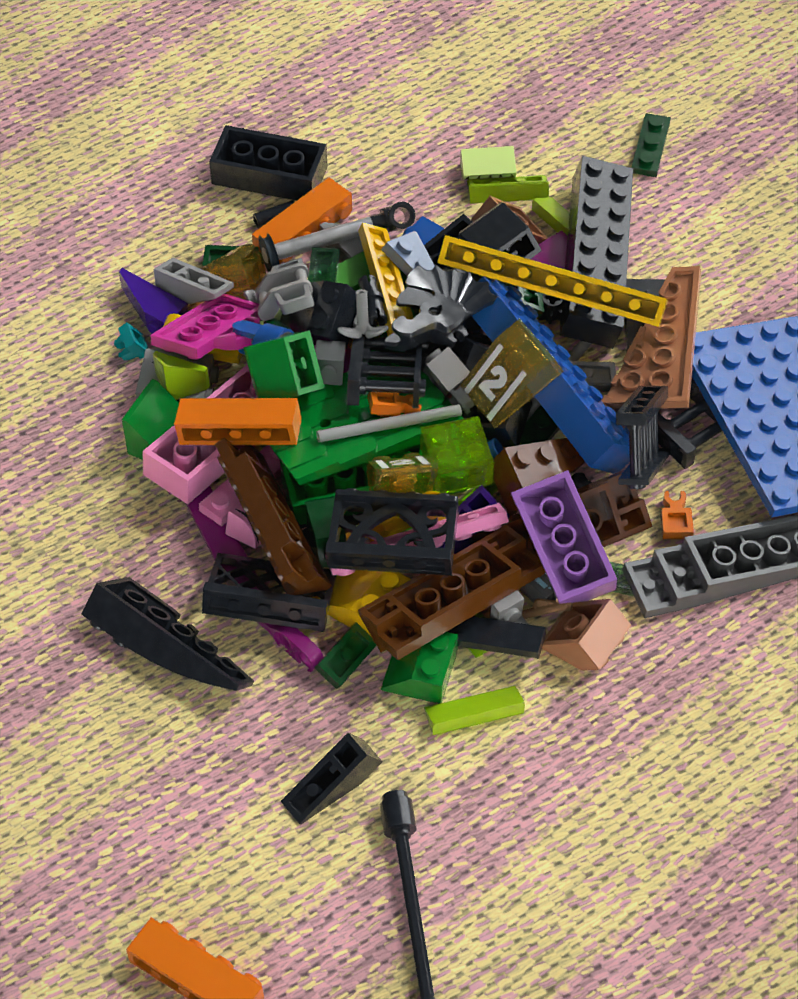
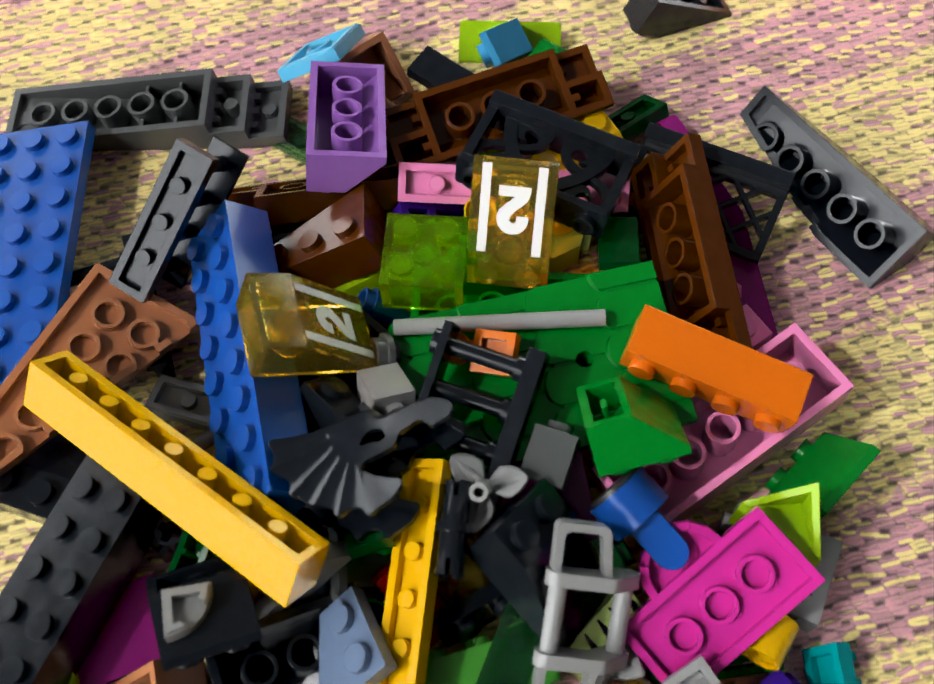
camera: 160 degrees left, 10 degrees up
(473, 673) = (503, 44): none -> dark azure slope
(504, 225) = (185, 609): none -> light grey tile
(626, 628) = (327, 48): none -> medium azure tile

